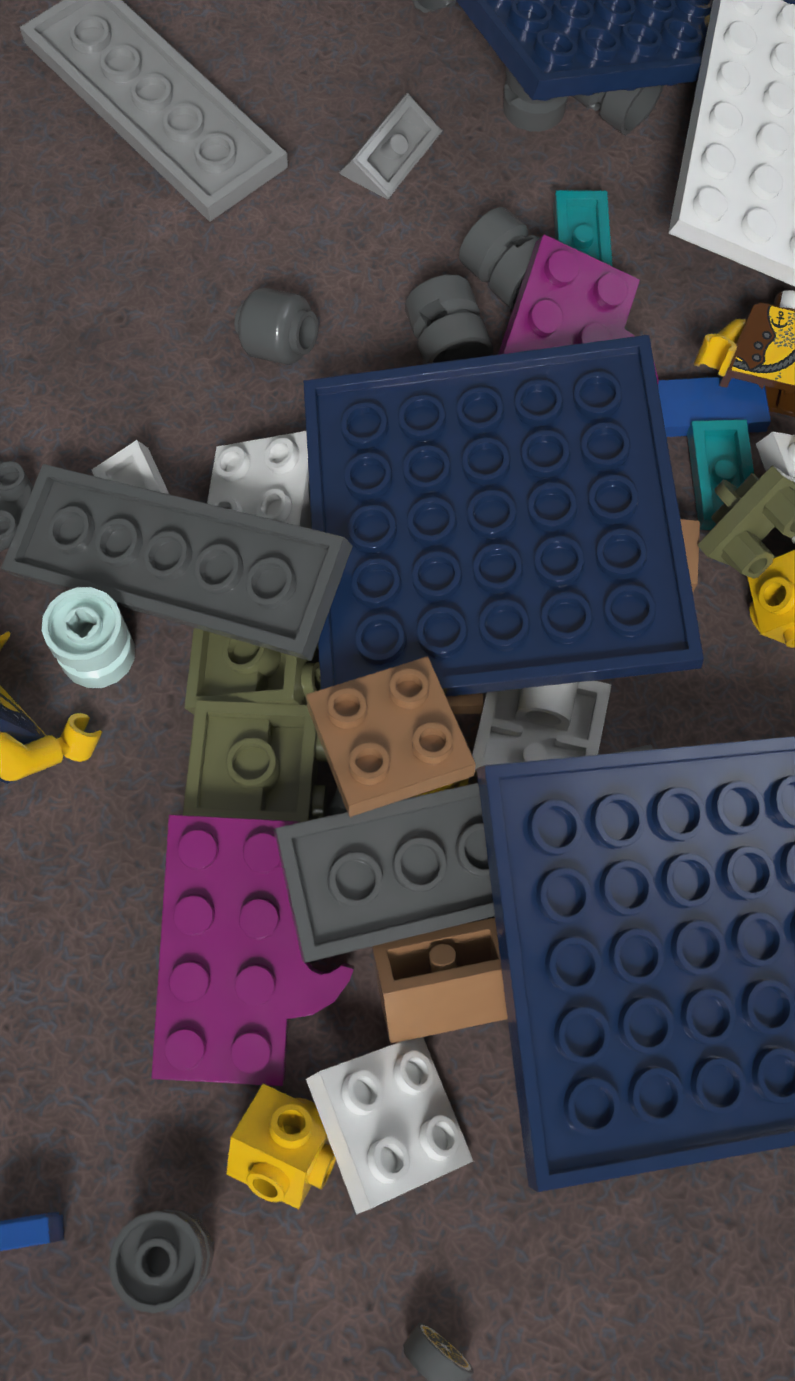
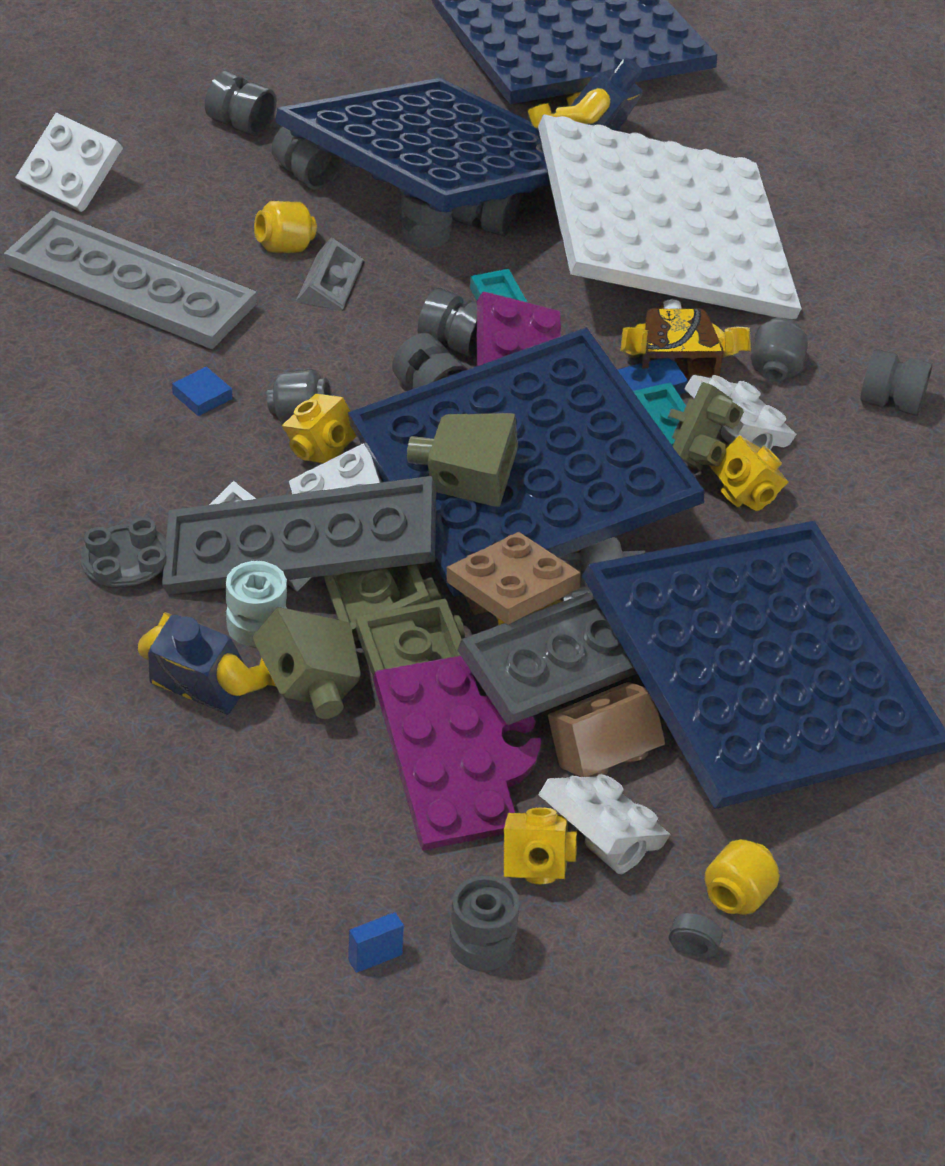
camera: 20 degrees left, 25 degrees down
(115, 753) = (309, 658): none -> olive torso
(172, 281) = (202, 391): none -> blue tile
(272, 384) = (319, 428): none -> yellow brick
(360, 63) = (284, 227): none -> yellow head
(412, 510) = (469, 455): none -> olive torso
(535, 1284) = (741, 877): none -> yellow head

